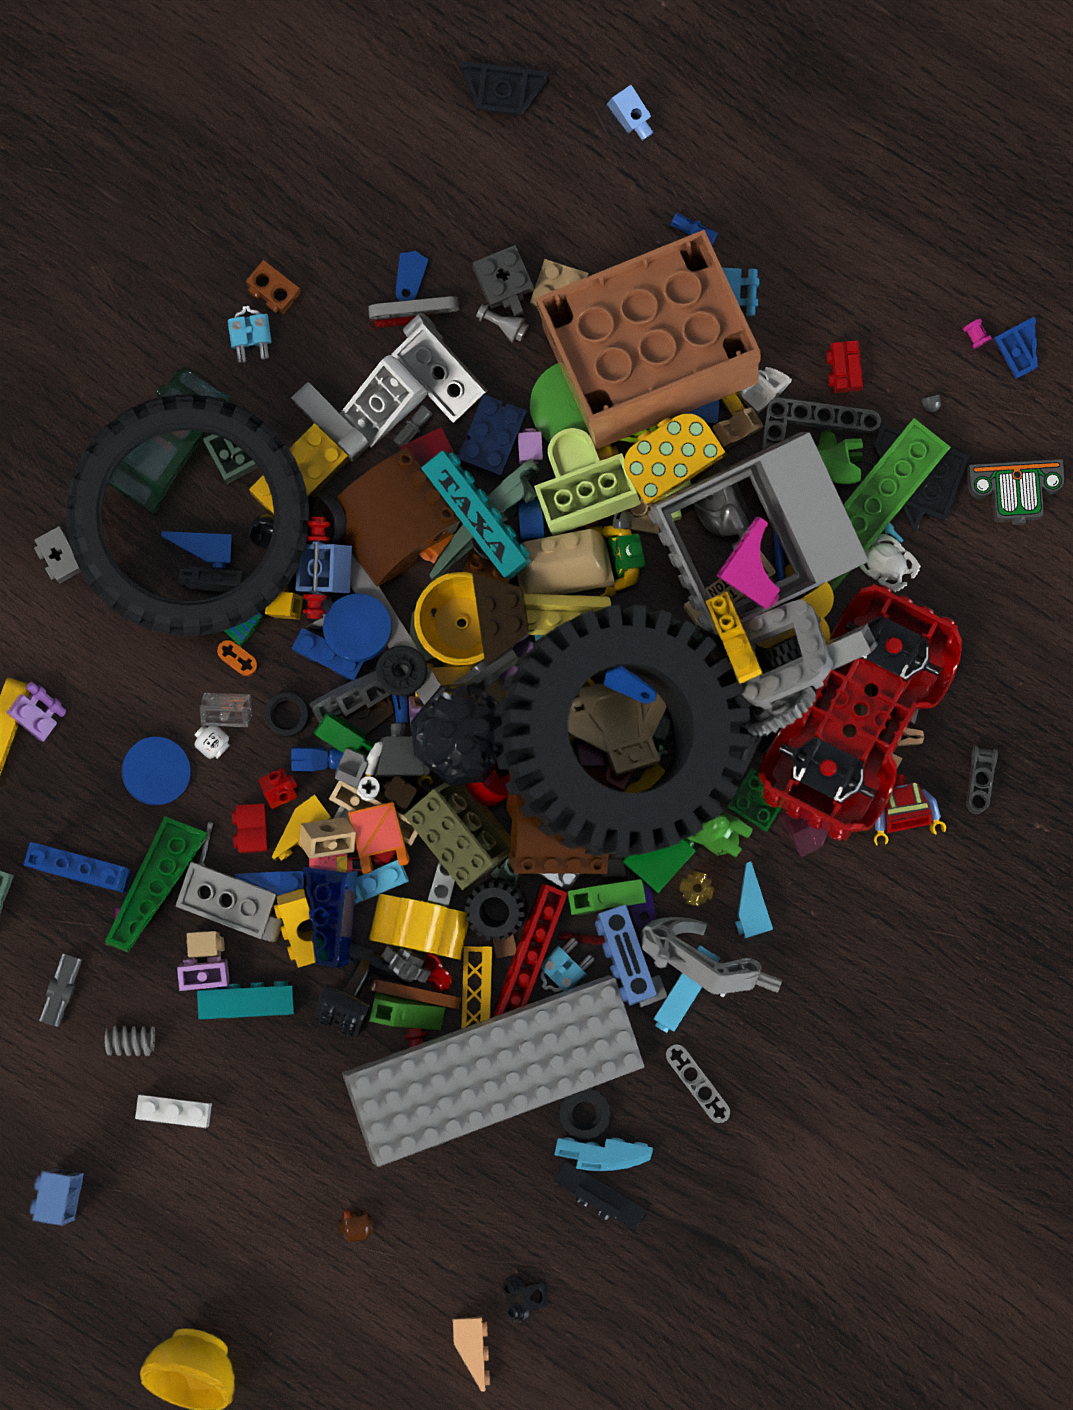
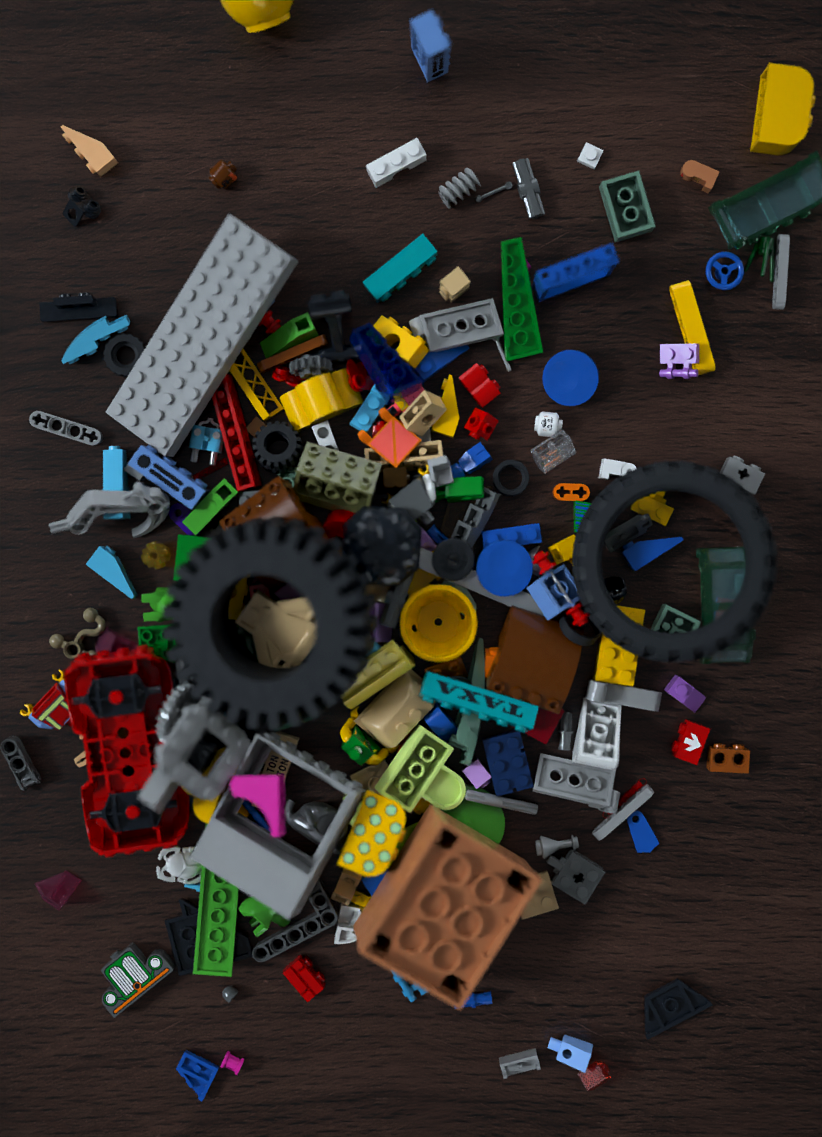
camera: 145 degrees right, 5 degrees up
(78, 1009) = (508, 186): none -> dark grey hinge
(166, 583) = (655, 507): none -> yellow hinge
(176, 650) = (614, 468): none -> white leg
(203, 973) = (441, 265): lavender brick -> none
(249, 332) = (721, 717): medium azure piece -> none
(268, 381) = (685, 693): none -> medium lavender slope
(297, 330) = (690, 741): none -> red brick
(362, 792) = (416, 470): white bush -> none
(366, 921) = (358, 376): none -> red plate
(500, 616) = (411, 643): dark brown wing -> none
(526, 402) = (501, 802): none -> light grey axle
(622, 520) = (379, 767): dark grey hinge -> none
(625, 73) = (595, 1075): none -> clear red brick
(629, 685) = (287, 657): blue piece -> none
(691, 136) = (519, 1062): none -> light grey hinge
(734, 637) = (240, 740): yellow slope -> none
(806, 876) = (89, 615): none -> dark tan piece
(1031, 627) = (58, 889): none -> clear pink slope

